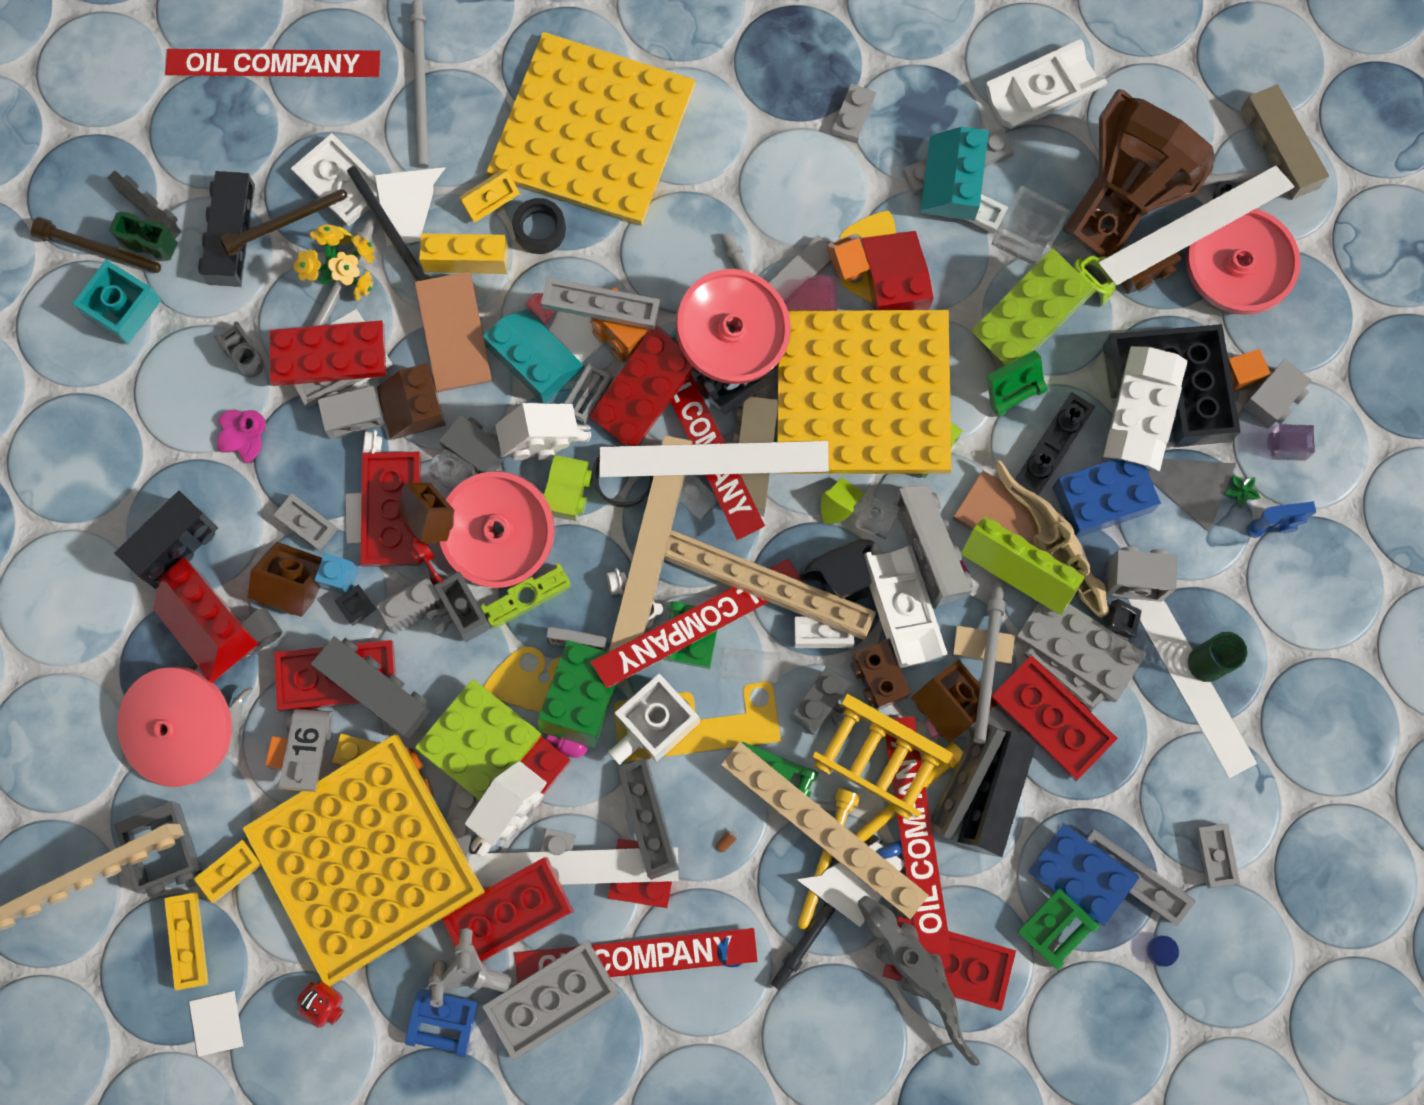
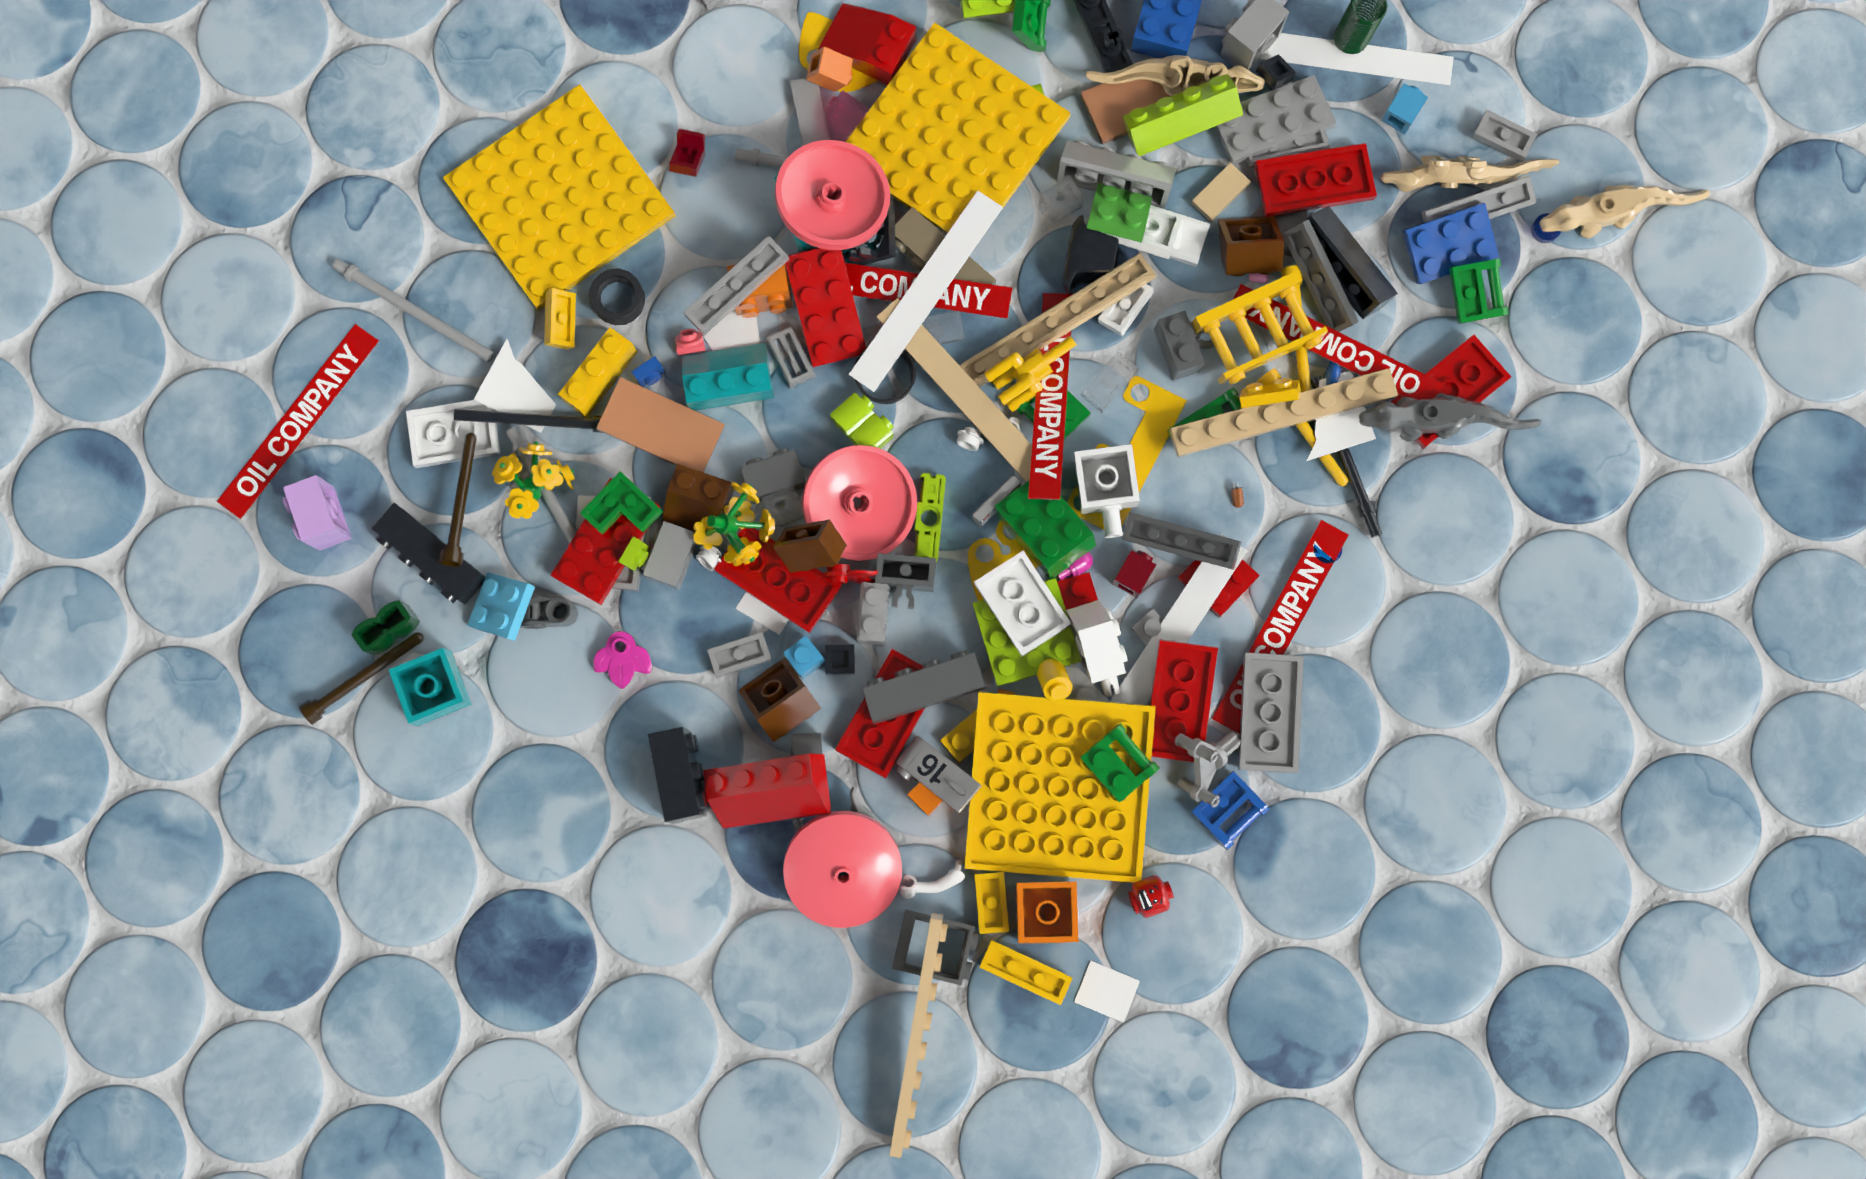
camera: 50 degrees left, 5 degrees up
(144, 202) = (351, 609): clear smoke plate -> none
(200, 123) = (316, 513): none -> lavender brick
(219, 310) = (501, 606): none -> medium azure plate
(222, 821) = (950, 879): none -> white piece
(246, 923) = (1047, 912): none -> orange brick
(328, 381) = (634, 554): none -> lime plate
(364, 337) = (620, 498): none -> green plate
(392, 431) = (736, 516): none -> yellow plant
(403, 892) = (1110, 767): none -> green plate
(447, 790) = (1054, 680): none -> yellow brick
(493, 292) = (649, 372): none -> blue plate
(495, 718) = (1022, 603): none -> white plate
(539, 431) = (803, 412): white brick -> none
(594, 798) = (1134, 573): none -> dark red brick
(697, 199) = (688, 153): none -> dark red bracket
(702, 587) = (1027, 372): none -> yellow plant
(826, 801) = (1259, 394): none -> yellow plate
(839, 501) = (1028, 219): lime tile -> none
(880, 676) = (1191, 286): reddish brown brick -> none
(896, 570) = (1119, 212): none -> bright green plate
(995, 609) = (1201, 163): light grey bar -> none
(1156, 839) = (1461, 170): none -> tan animal
(1175, 751) = (1404, 108): none -> dark azure brick
(1229, 999) = (1613, 206): none -> tan animal

